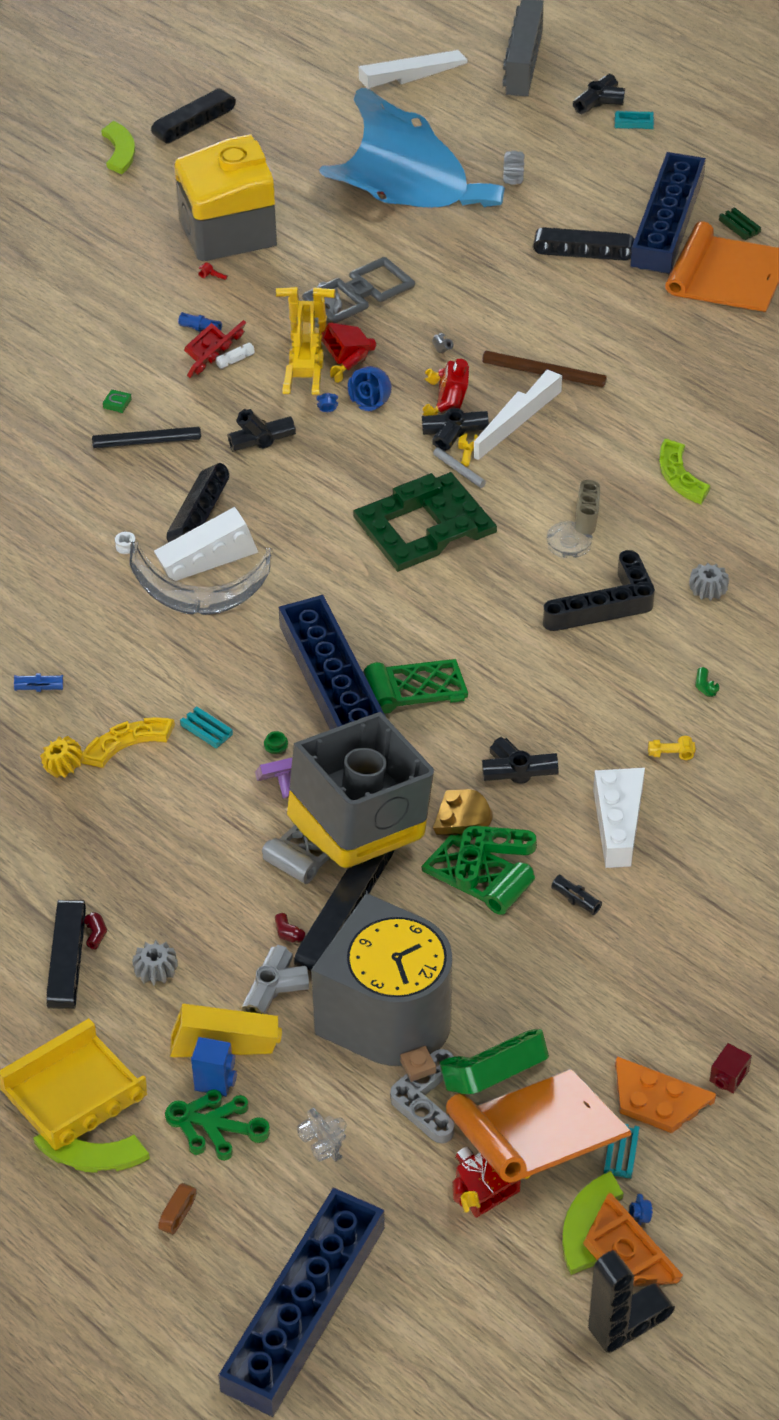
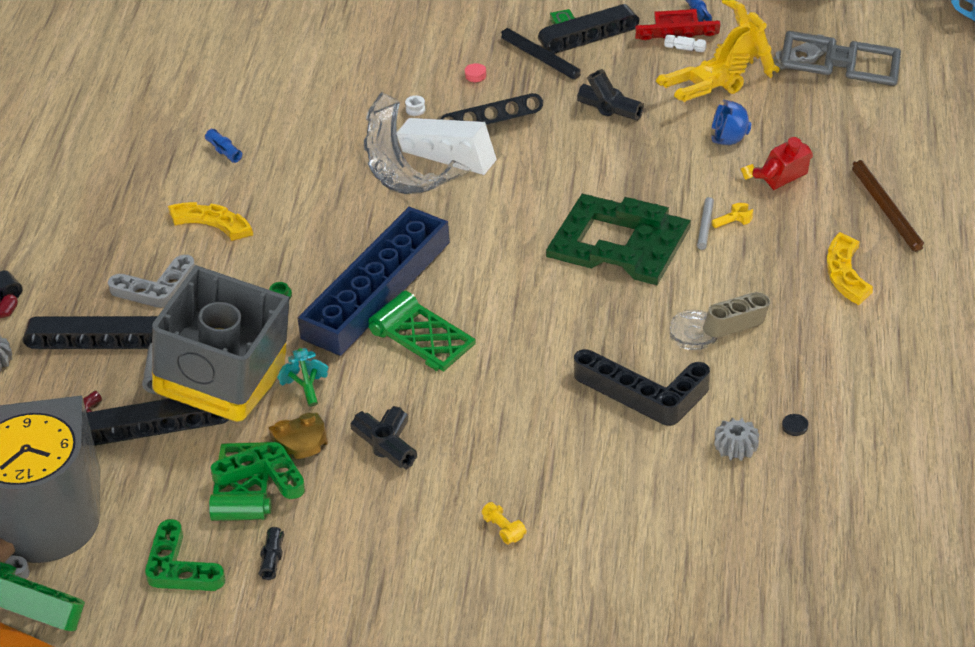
camera: 55 degrees right, 5 degrees down
(62, 757) = (154, 195): yellow gear -> none
(124, 486) = (475, 72): none -> coral tile
(152, 393) = (588, 28): none -> black beam
(183, 813) = (156, 293): none -> light grey beam
(209, 725) = (264, 238): teal tile -> none
(209, 873) = (89, 332): none -> black beam
(327, 402) = (688, 114): blue plate -> none
(347, 346) = (763, 86): red torso -> none
(441, 344) = (838, 132): flat silver arm -> none
(453, 425) = (745, 189): black piece -> none
(518, 411) = (807, 217): white slope -> none
(533, 963) = (172, 568): none -> green beam
(574, 427) = (841, 272): none -> yellow tile
(618, 807) = (383, 528): white wedge -> none
(676, 475) = (860, 347): lime tile -> none
(703, 685) = (606, 504): green arm -> none
(716, 547) = (795, 424): none -> black piece

